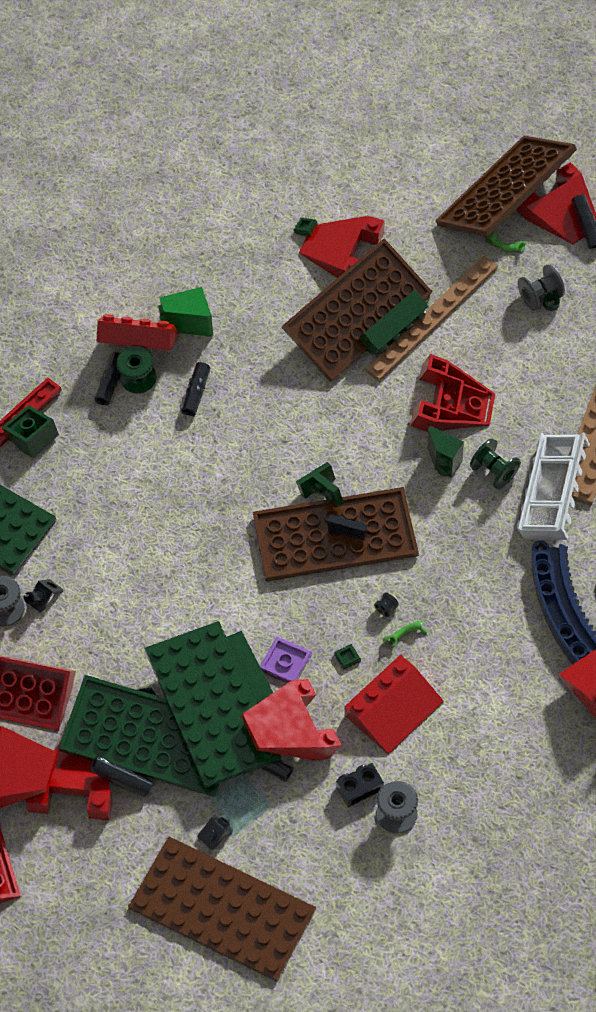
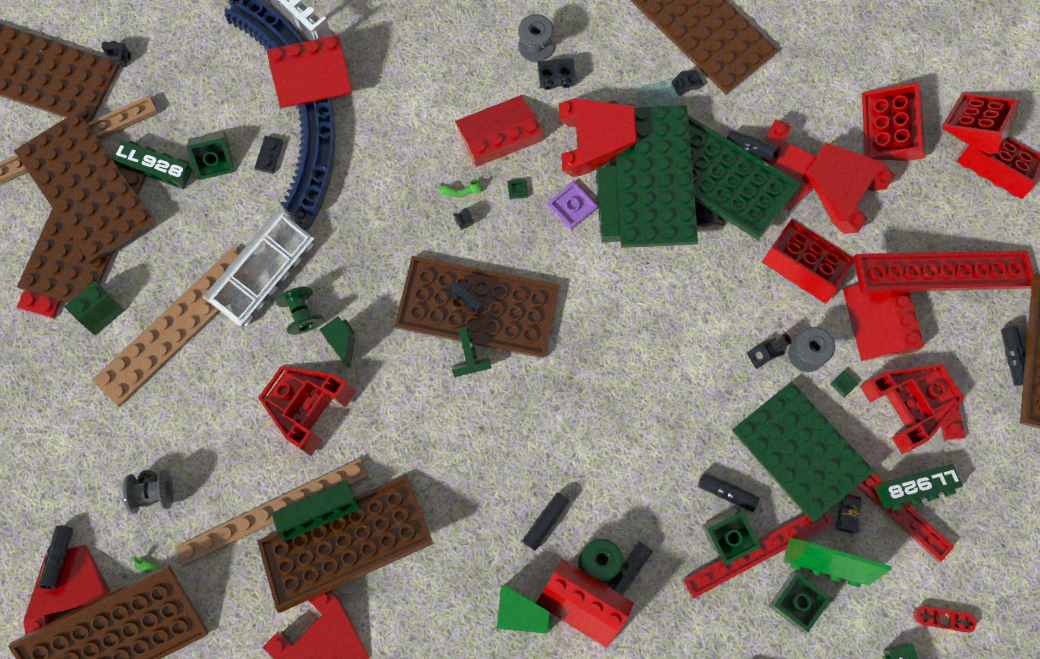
camera: 160 degrees left, 15 degrees up
(43, 466) = (728, 491): none -> black axle

